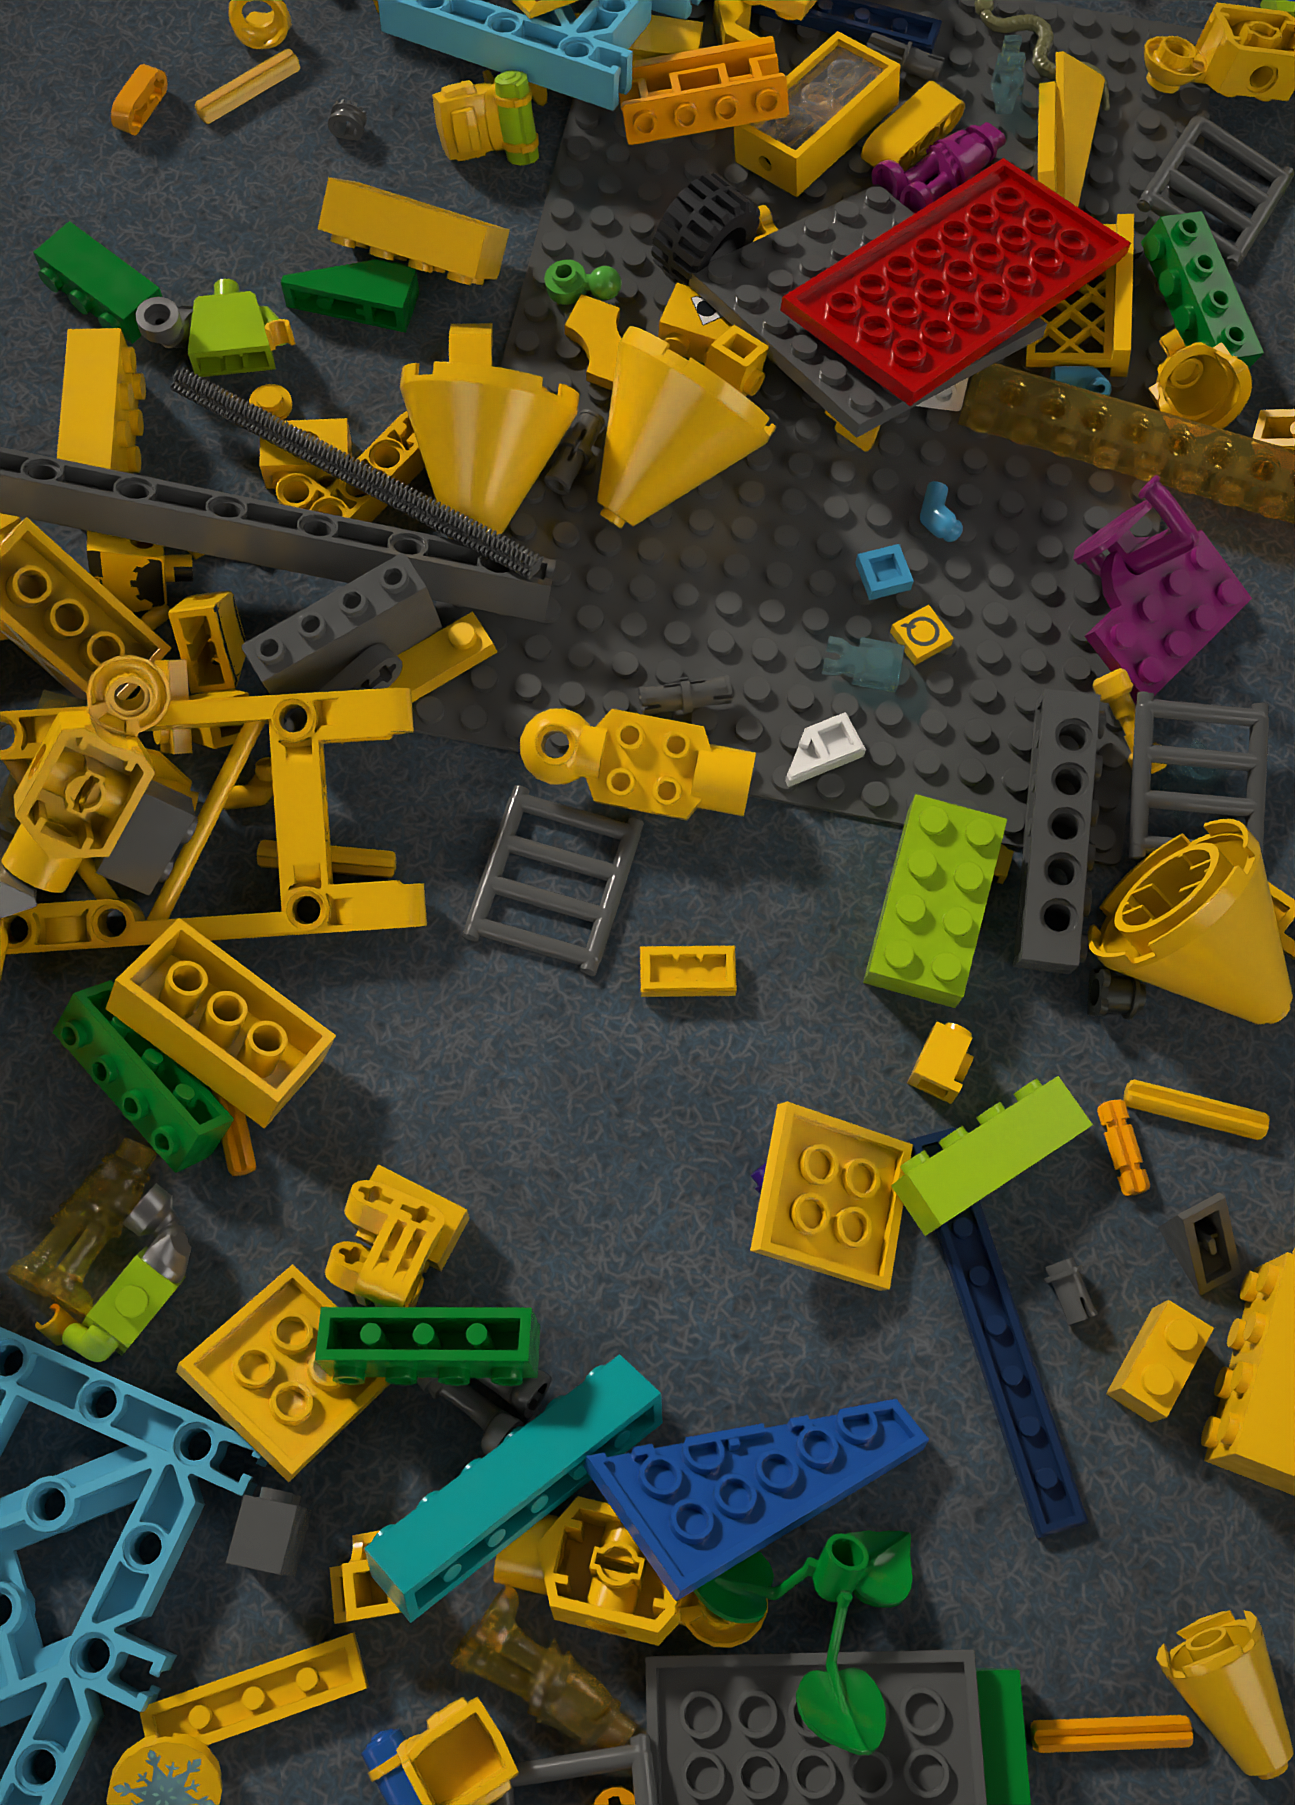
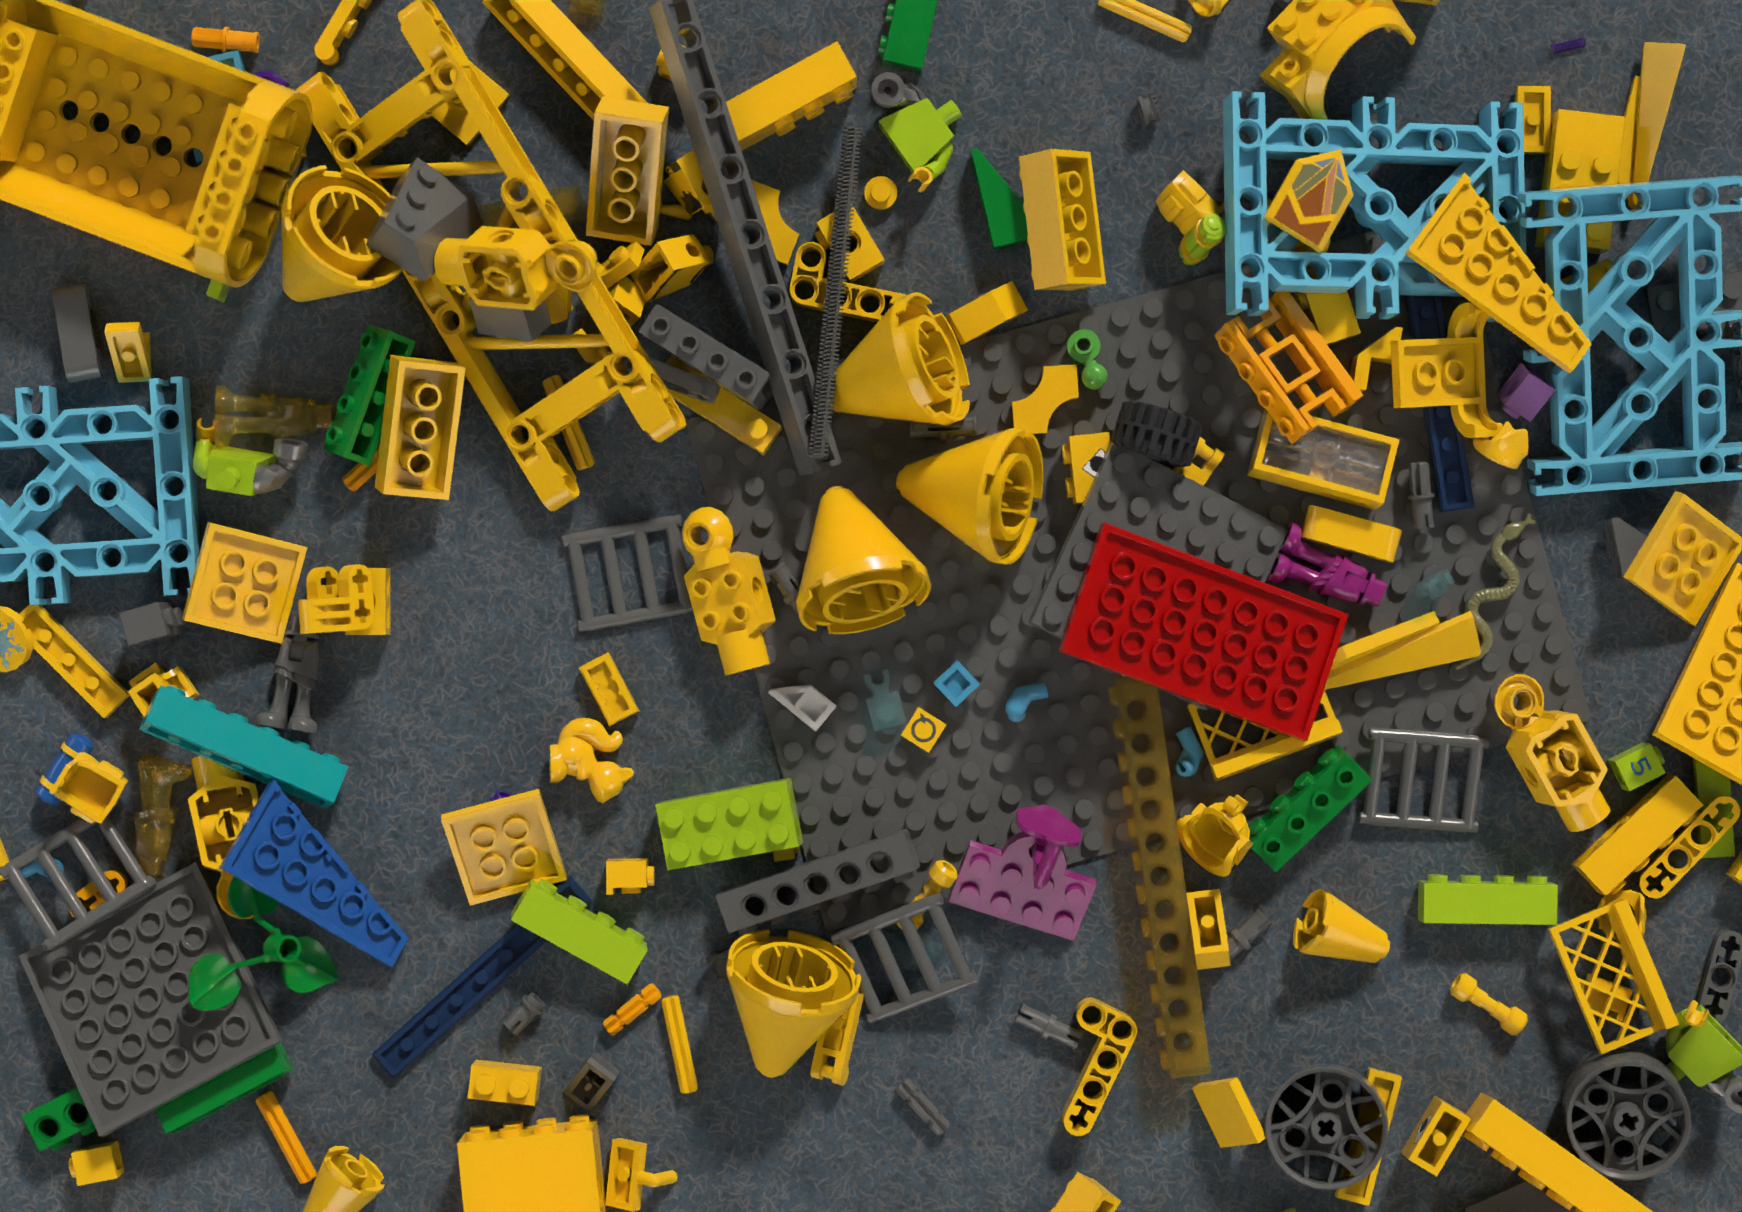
camera: 65 degrees right, 20 degrees up
(428, 1344) = (295, 665): green brick -> none
(693, 588) = (856, 569): none -> yellow cone
(738, 360) = (1054, 509): yellow brick -> none
(756, 1049) = (576, 757): none -> yellow animal

